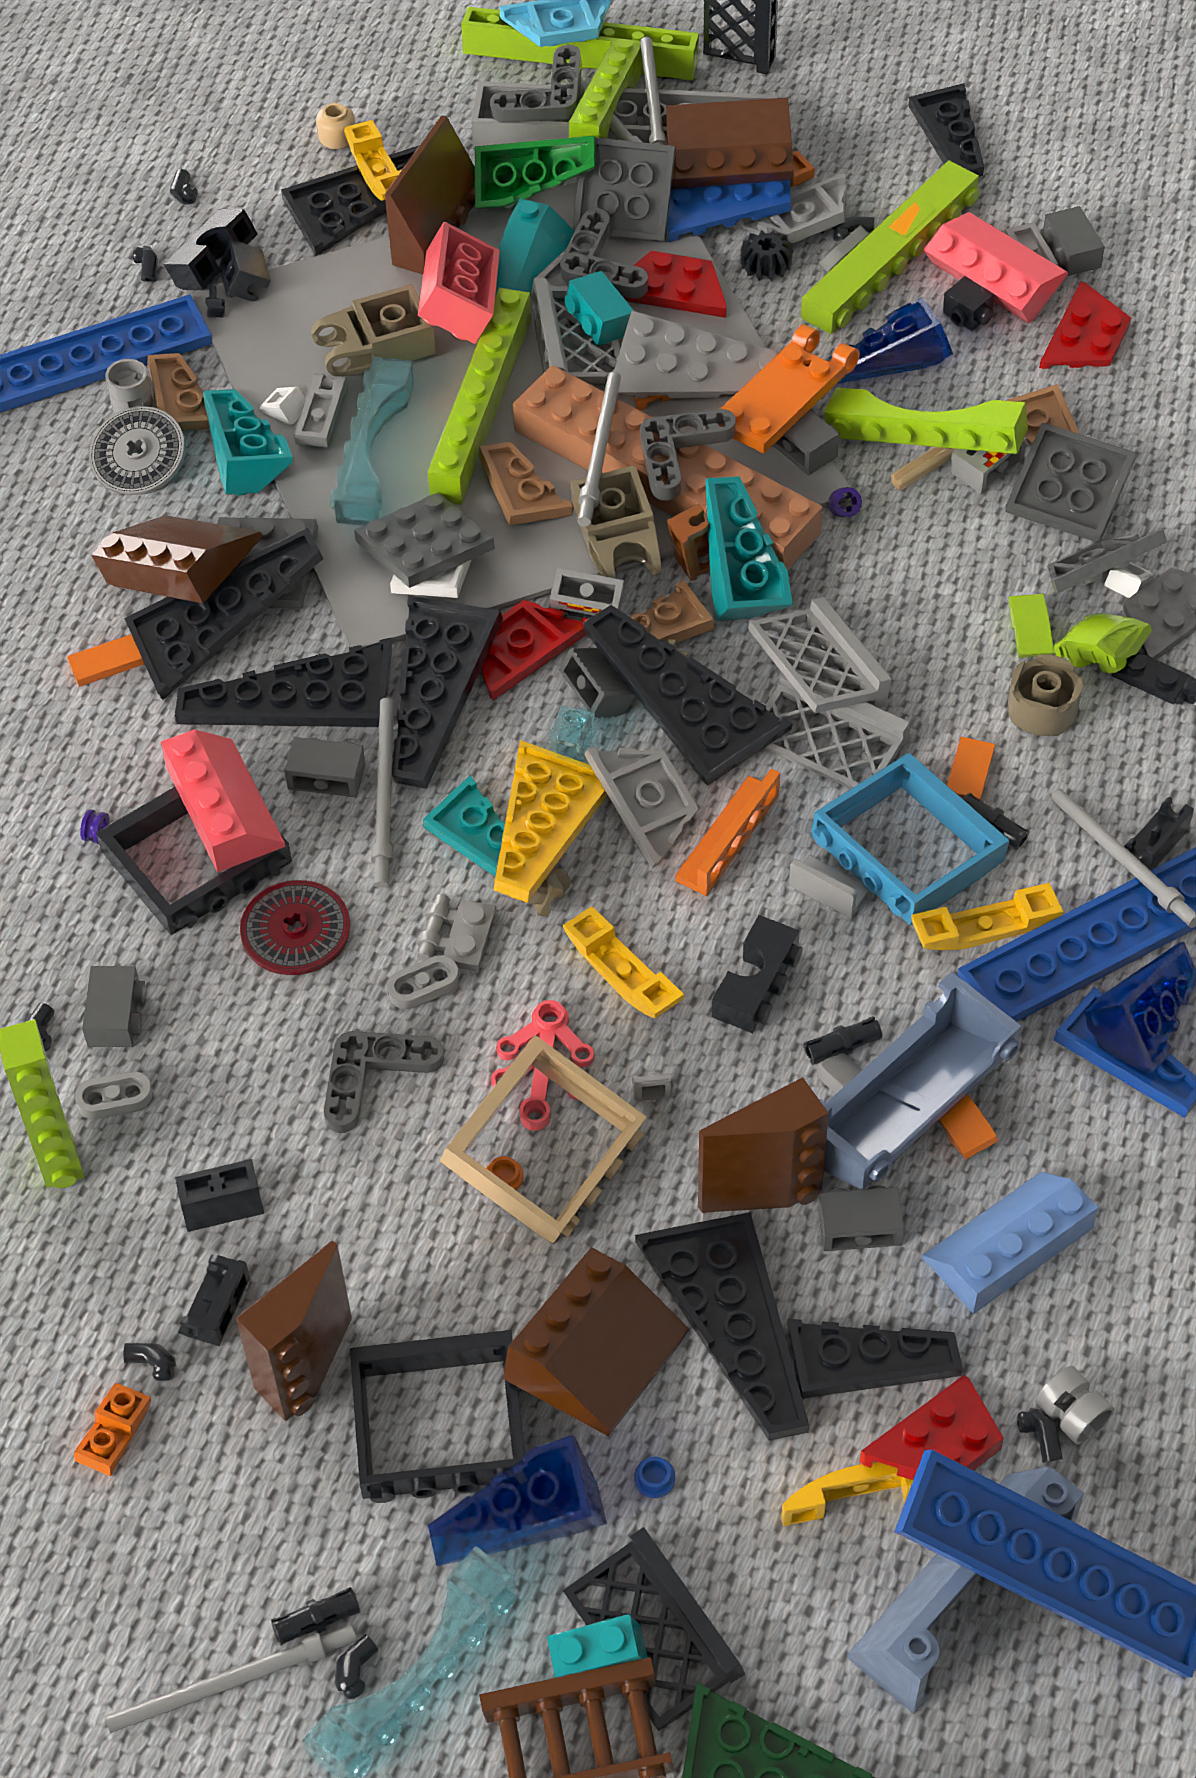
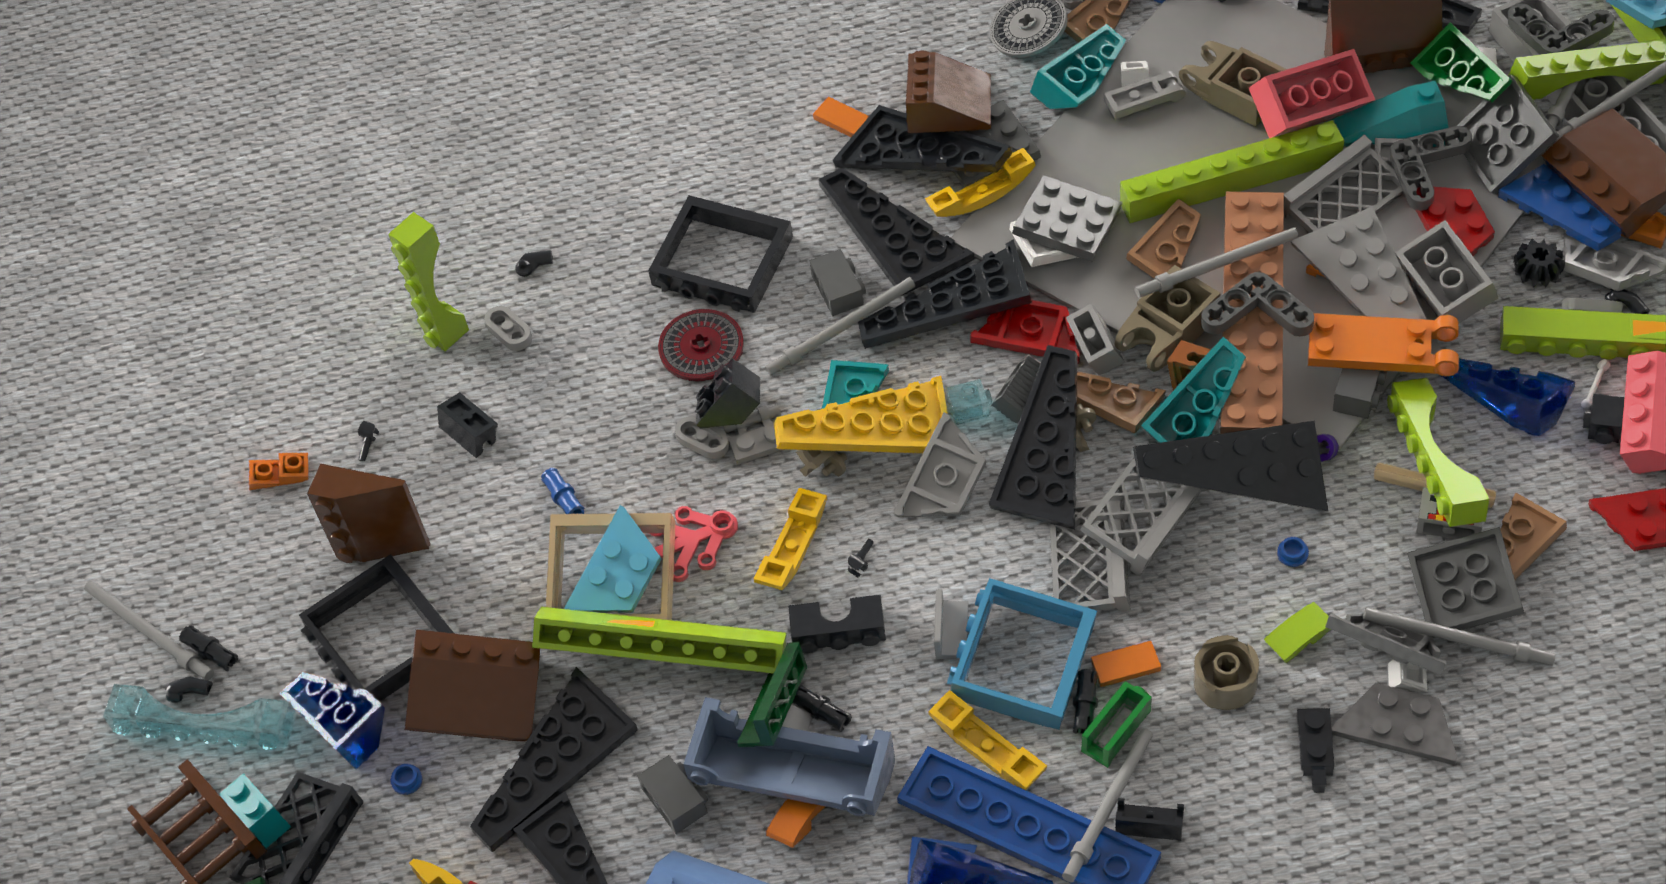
camera: 65 degrees right, 0 degrees up
(93, 823) = (703, 190): dark purple bush -> none
(112, 1006) = (570, 286): dark grey brick -> none
(138, 1304) = (366, 431): none -> black hand
(154, 1355) = (338, 455): black arm -> none
(216, 1300) = (406, 468): black hinge -> none
(220, 798) = (753, 238): coral slope -> none
(320, 587) = (985, 191): none -> yellow slope
(368, 1057) = (622, 441): dark grey beam -> none
(386, 393) = (1186, 120): clear light blue arch -> none
(390, 1146) = (561, 492): none -> blue pin
(402, 928) = (729, 396): none -> black slope
(507, 1170) = (577, 566): orange plate -> none
(560, 1123) = (617, 569): none -> medium azure wing
(598, 307) = (1372, 187): teal brick -> none
(652, 1087) = (706, 611): light grey slope -> none
(669, 1135) = (658, 639): none -> lime brick
(686, 924) = (857, 560): none -> black hand
(729, 832) = (952, 543): orange fence -> none
(745, 306) = (1446, 273): none -> light grey brick
(765, 1153) = (660, 693): reddish brown slope -> none
(824, 1064) = (774, 699): none -> dark green panel
(837, 552) = (1258, 463): none -> black wing
(906, 279) = (1603, 366): none -> white hinge
(939, 585) = (1292, 552): none -> blue plate
(1039, 807) = (1116, 723): none -> green window
(1103, 640) = (1317, 686): lime slope -> none
(1158, 491) = (1520, 651): none -> light grey bar

